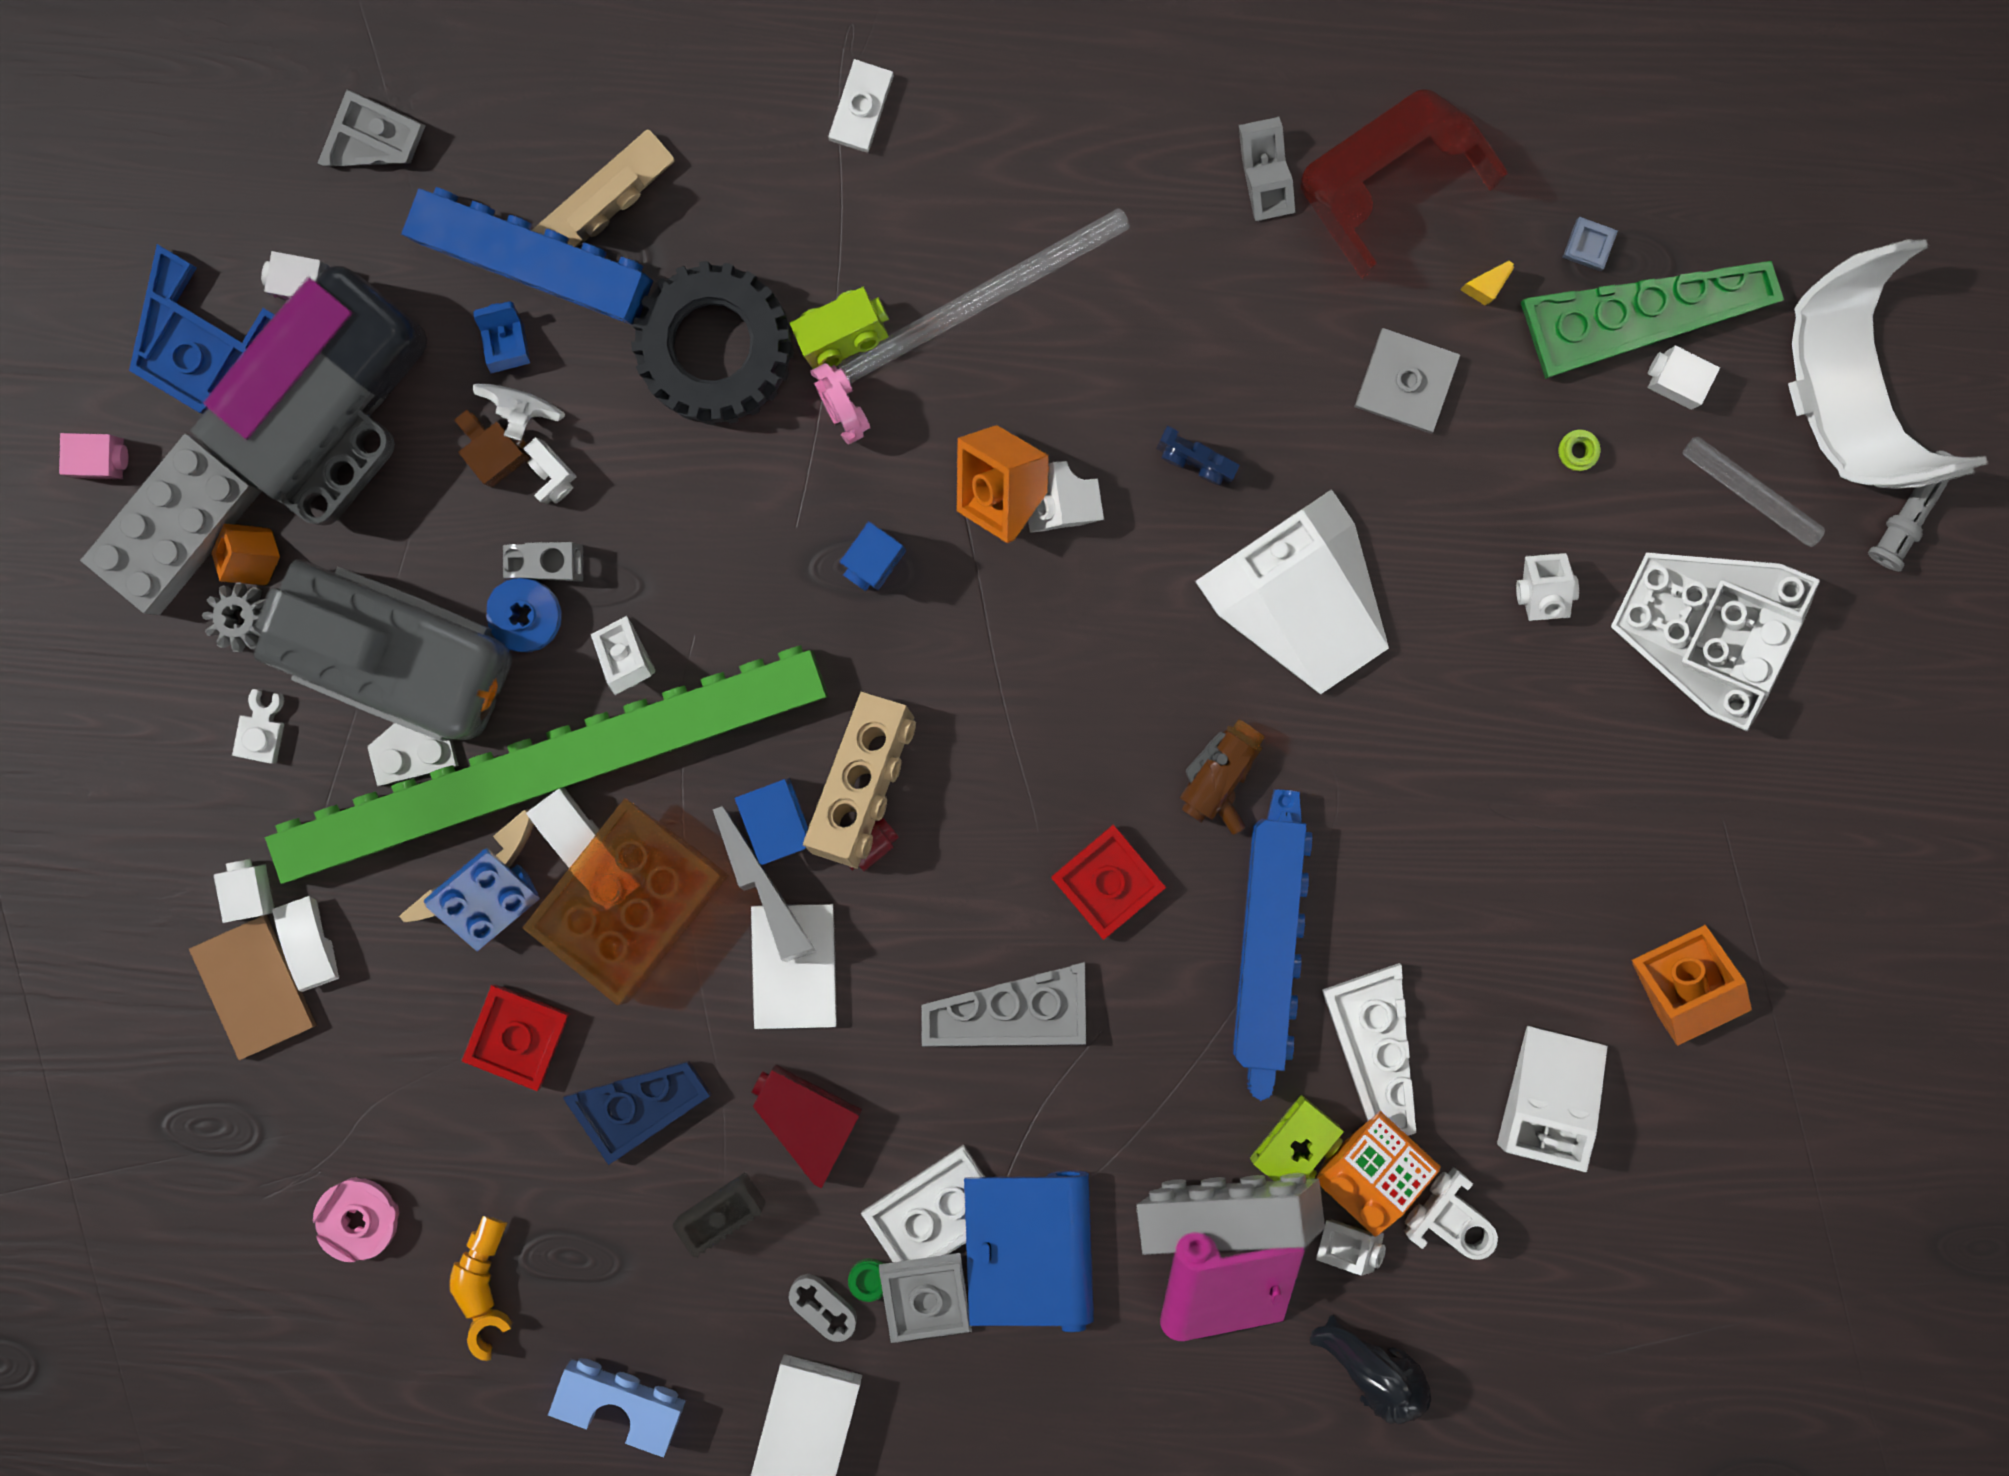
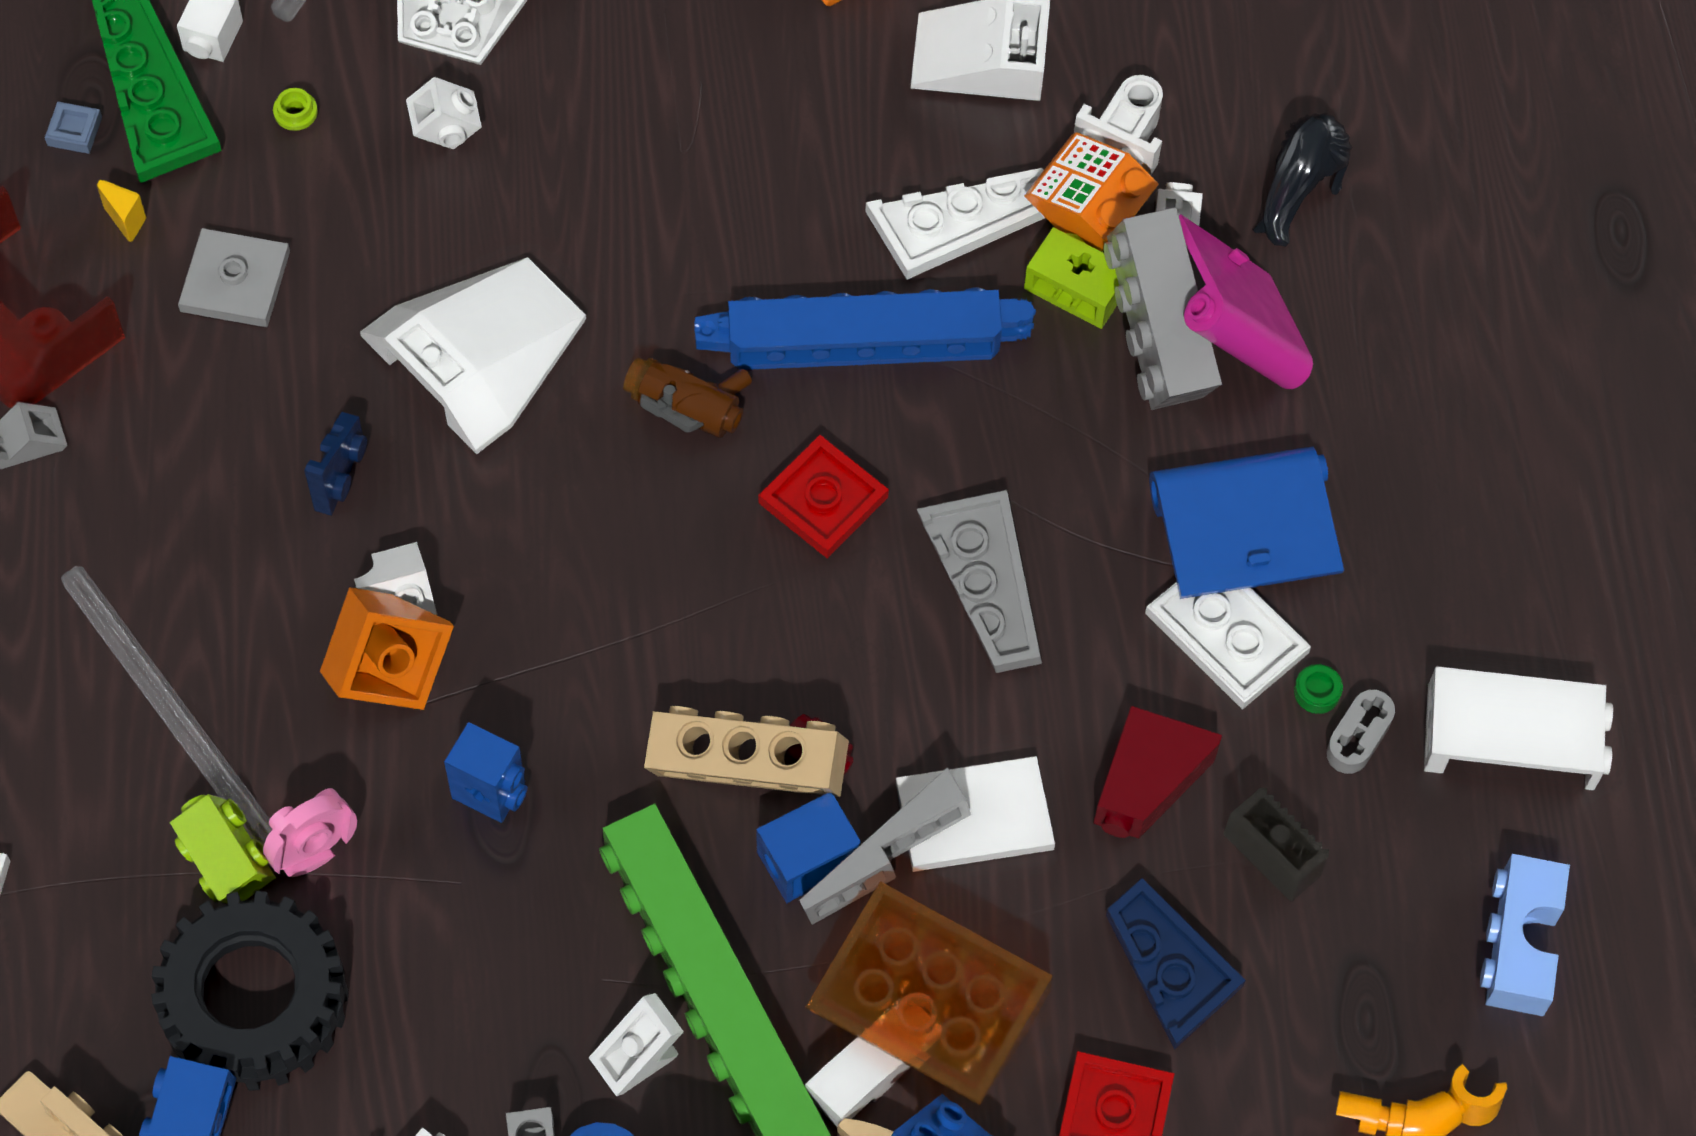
camera: 100 degrees left, 25 degrees down
(925, 1297) = (1324, 621): light grey plate -> none

